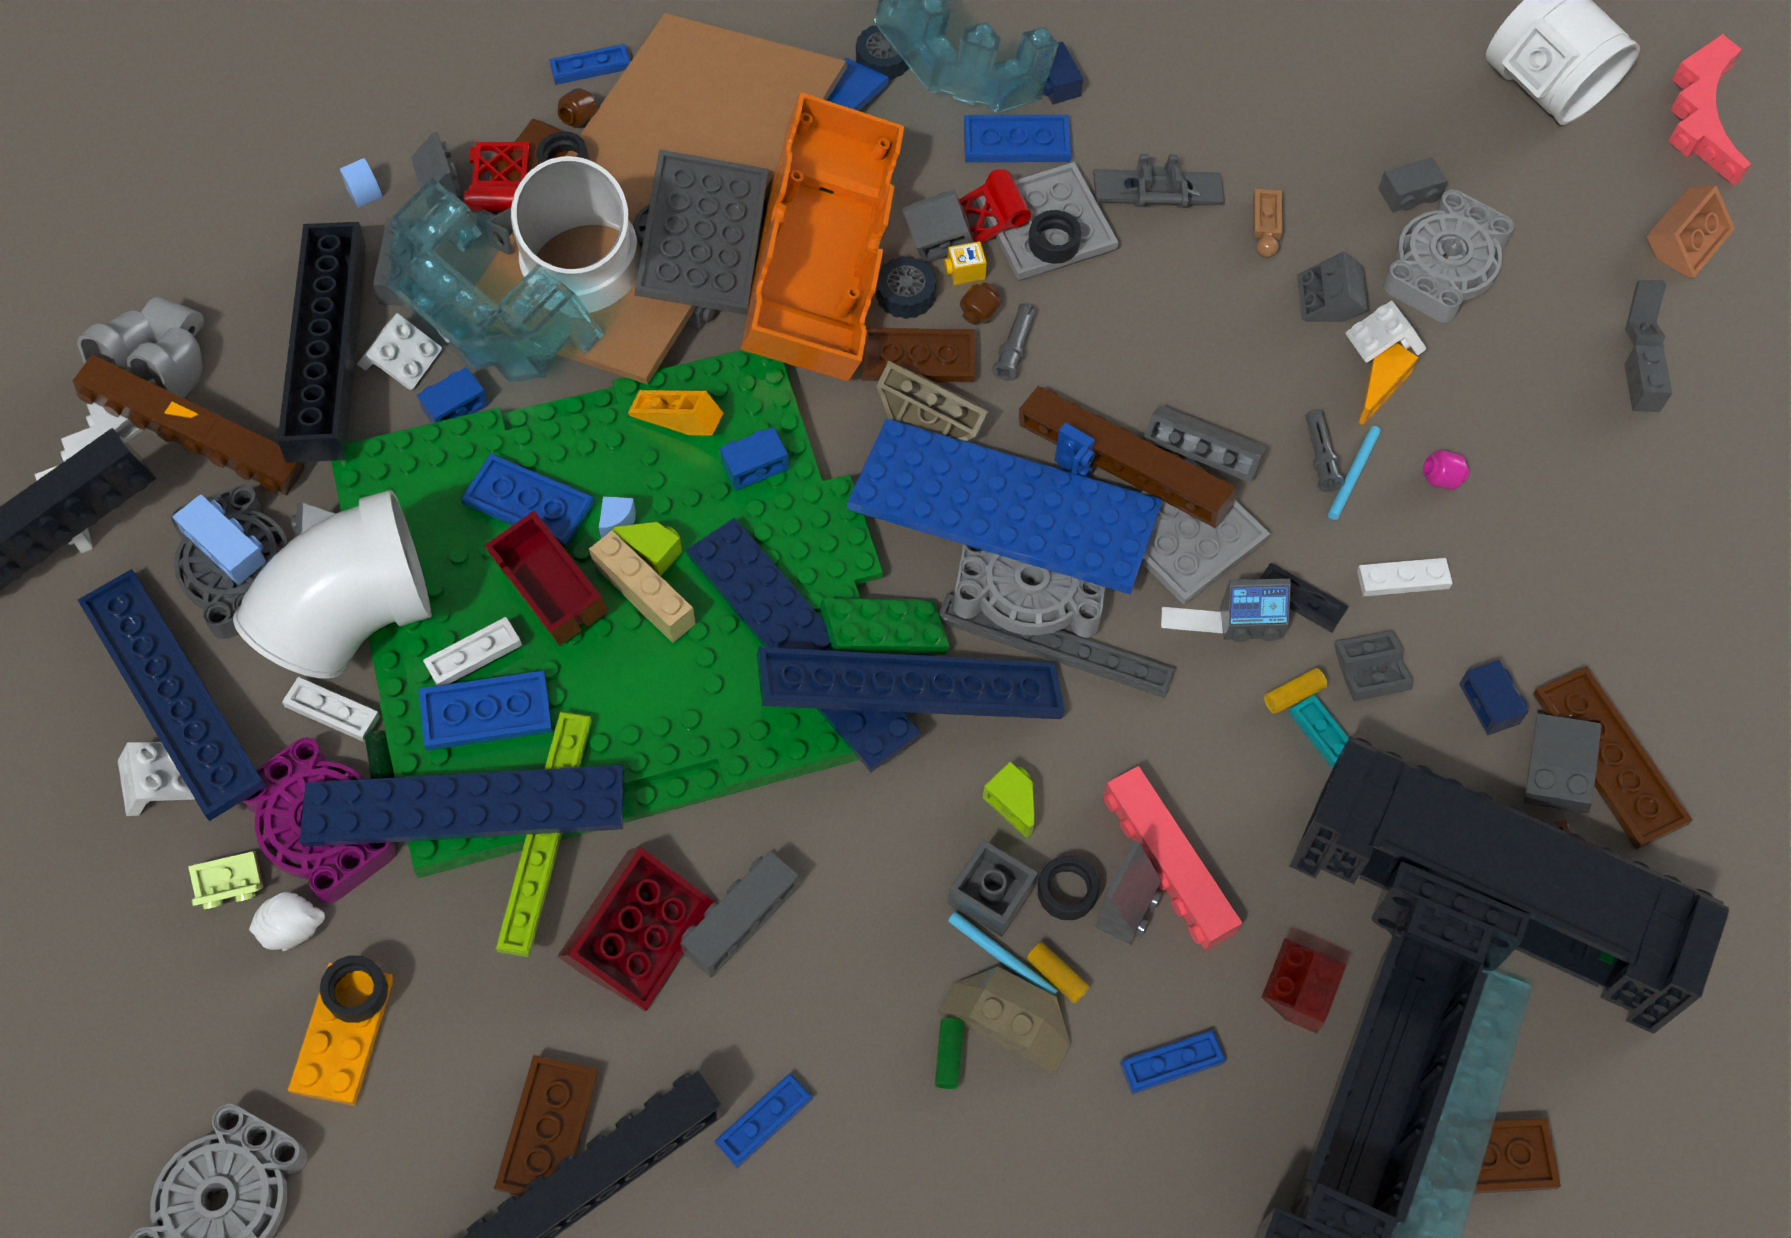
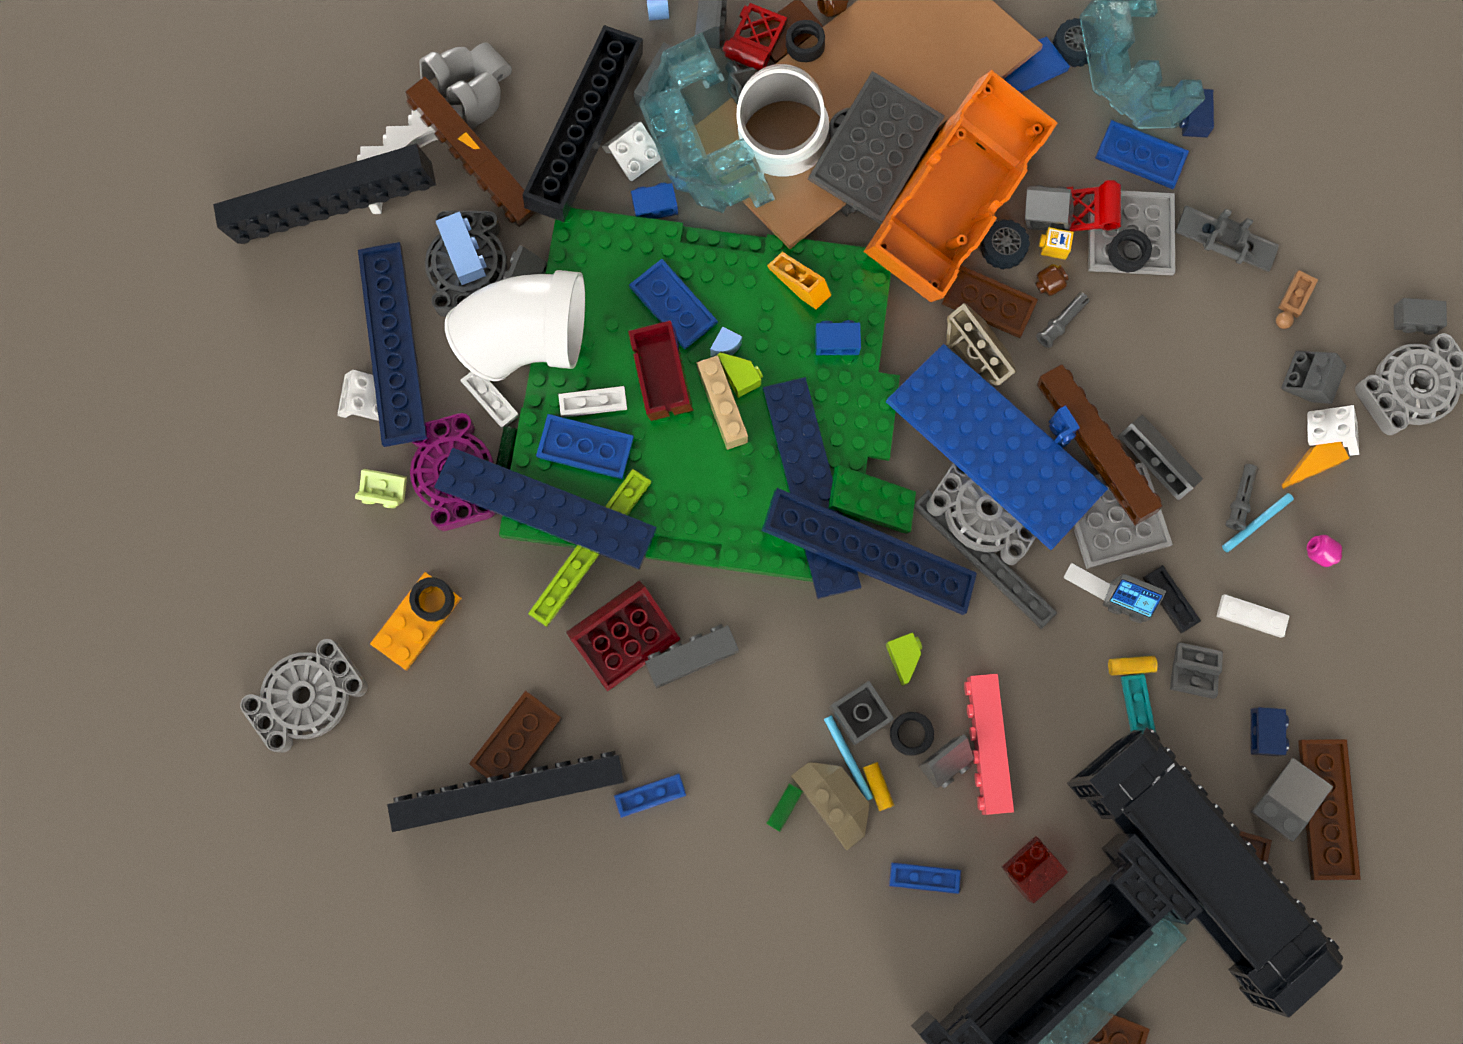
camera: 25 degrees right, 15 degrees up
(285, 921) = (408, 533): white hair -> none

